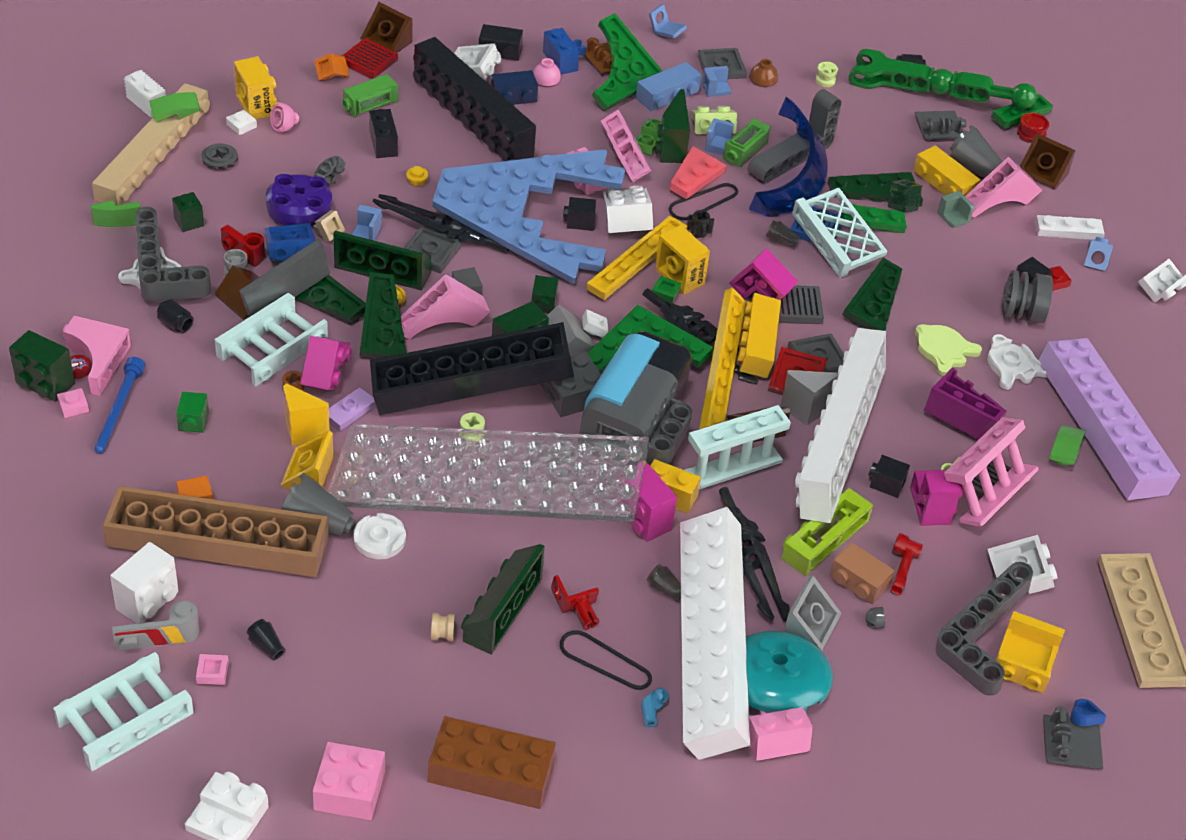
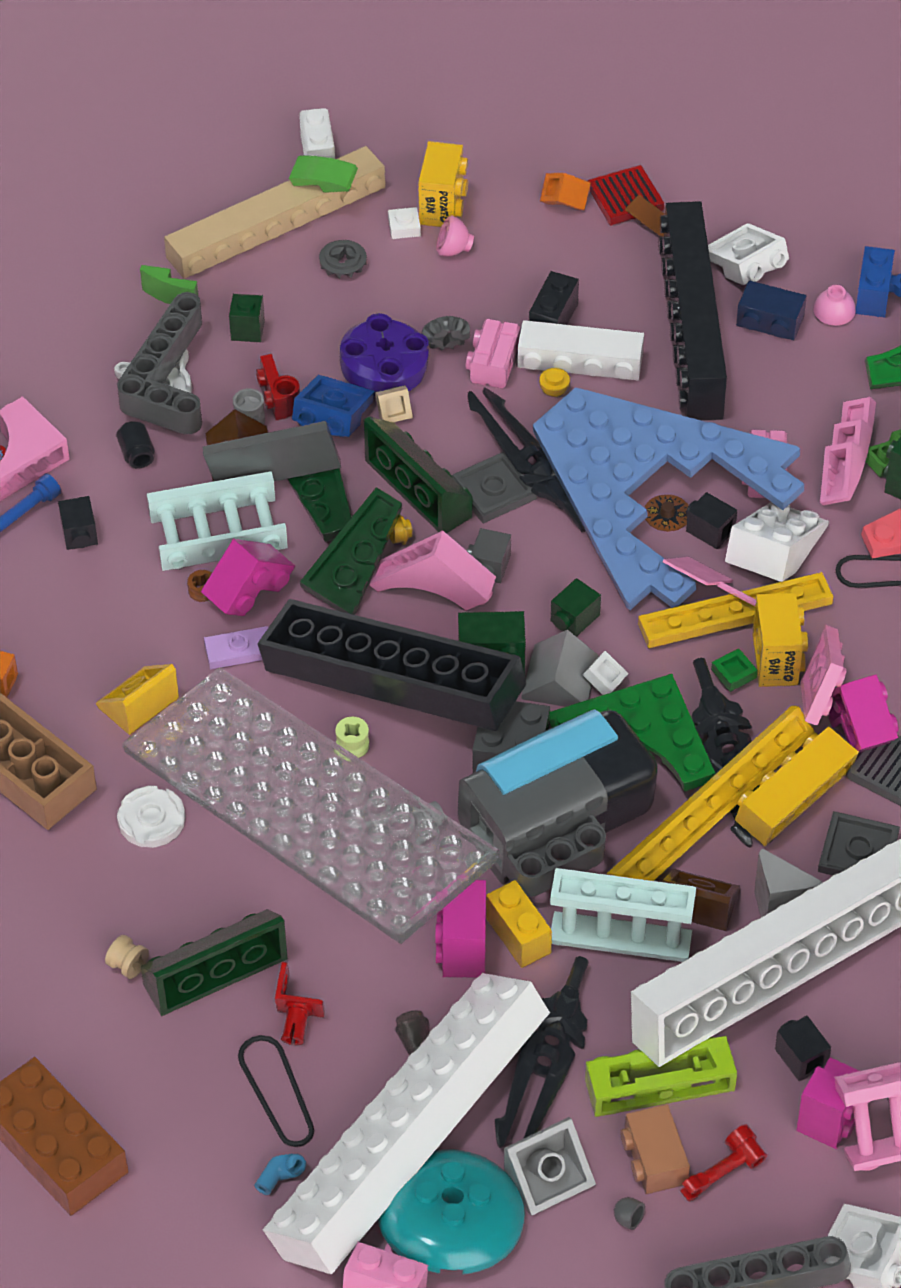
camera: 40 degrees right, 5 degrees up
(176, 378) = (78, 522): none -> black brick
(192, 412) = (64, 571): green brick -> none
(304, 415) = (166, 634): yellow slope -> none
(314, 499) = (100, 742): dark grey cone -> none
(367, 173) = (493, 353): none -> bright pink brick
(368, 222) = (444, 424): medium blue panel -> none
(370, 95) = (580, 247): bright green window -> none
(389, 28) = (675, 166): reddish brown slope -> none
(396, 64) = (646, 213): none -> dark orange sticker
(419, 150) = (580, 350): none -> white brick
(507, 40) = (809, 237): black brick -> none
(551, 222) = (666, 512): none -> piece
(620, 245) = (706, 576): none -> bright pink piece
(700, 224) = (853, 601): pearl dark grey gear -> none
(731, 264) = (822, 675): none -> bright pink plate
(793, 360) = (809, 850): red tile -> none

